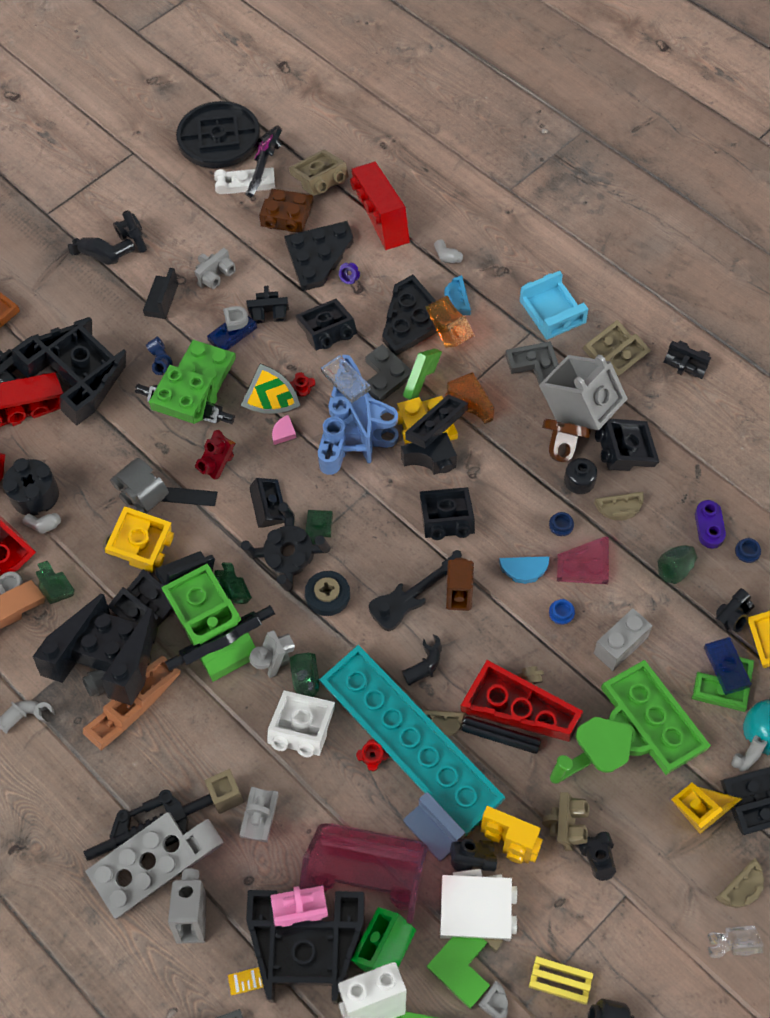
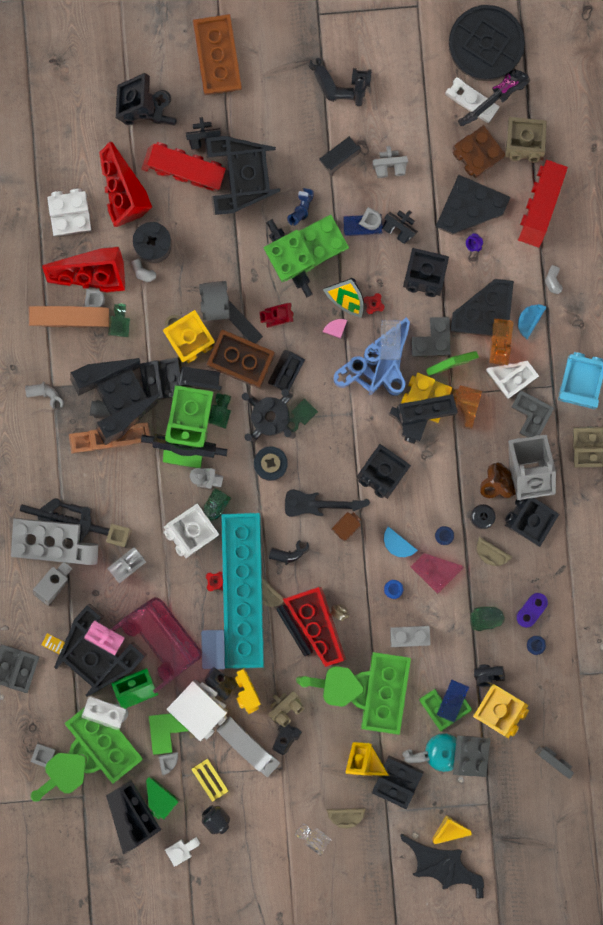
camera: 40 degrees right, 25 degrees up
(211, 519) = (240, 359): none -> reddish brown brick
(487, 348) = (512, 377): none -> white wing
(568, 895) = (248, 747): none -> light grey arch

